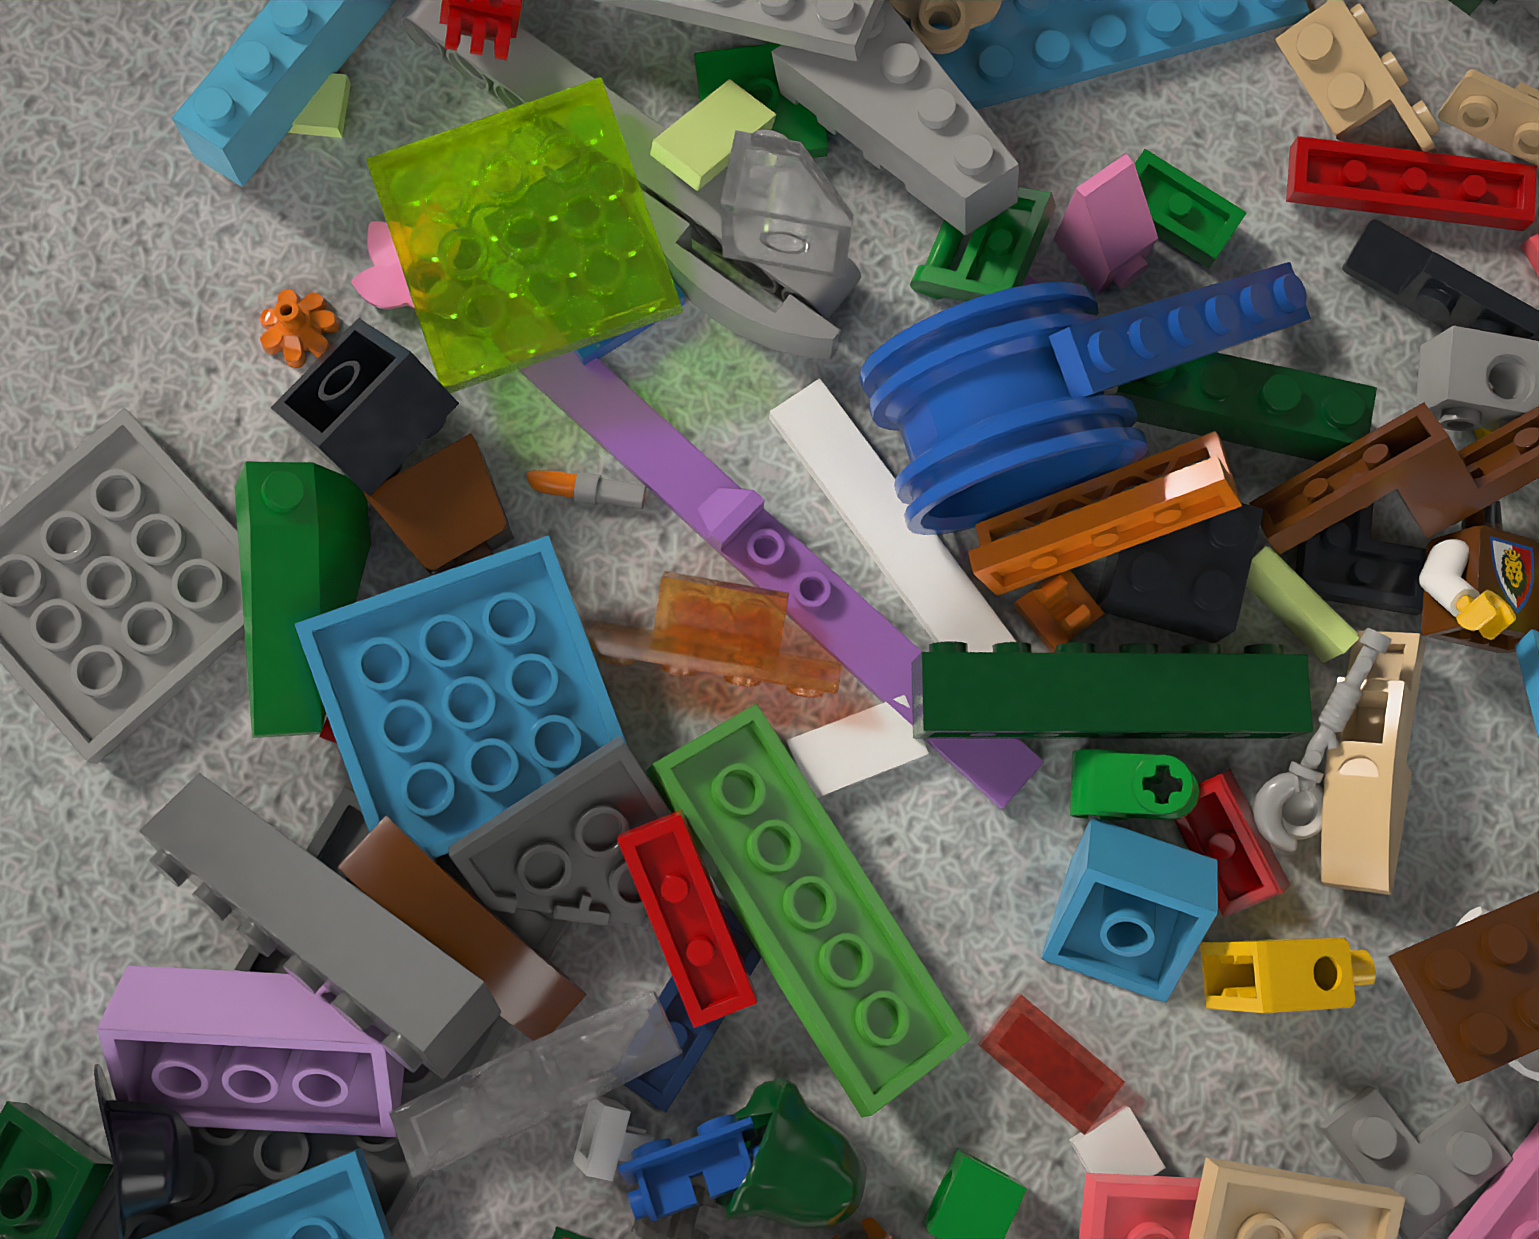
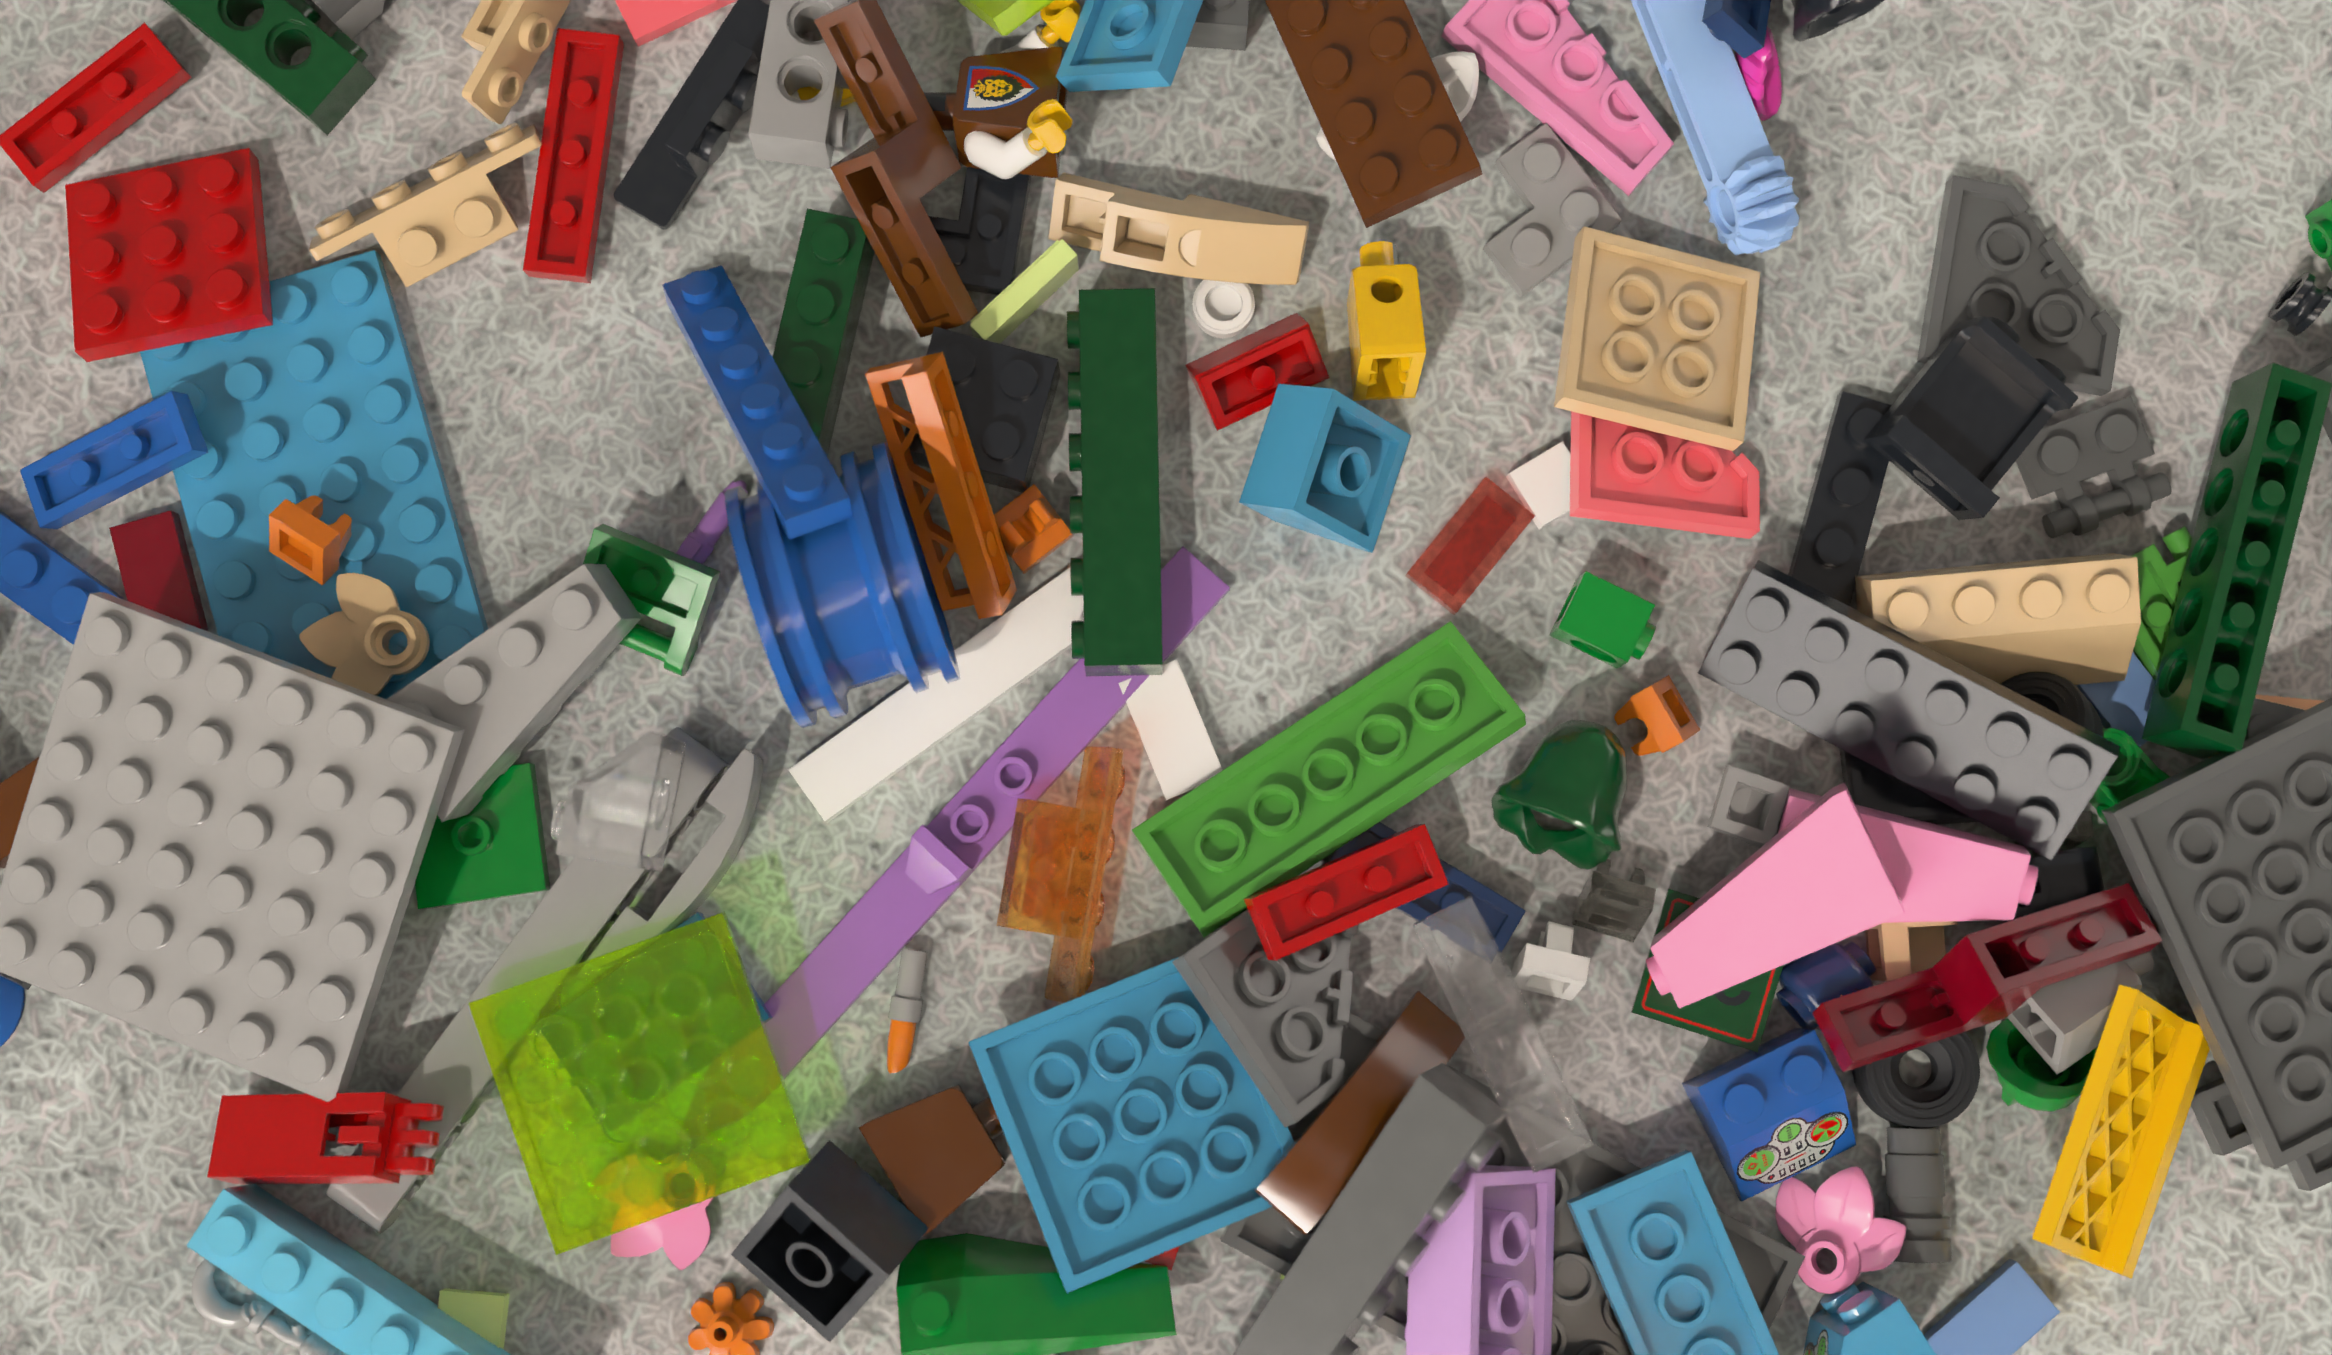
camera: 90 degrees left, 5 degrees up
(667, 1169) = (1580, 905): blue hinge -> none
(702, 139) = (525, 884): yellowish green tile -> none
(1108, 227) = (632, 469): bright pink slope -> none
(1120, 785) = (1208, 472): green piece -> none
(1186, 211) = (601, 397): green plate -> none
(1303, 775) = (1194, 297): light grey piece -> none

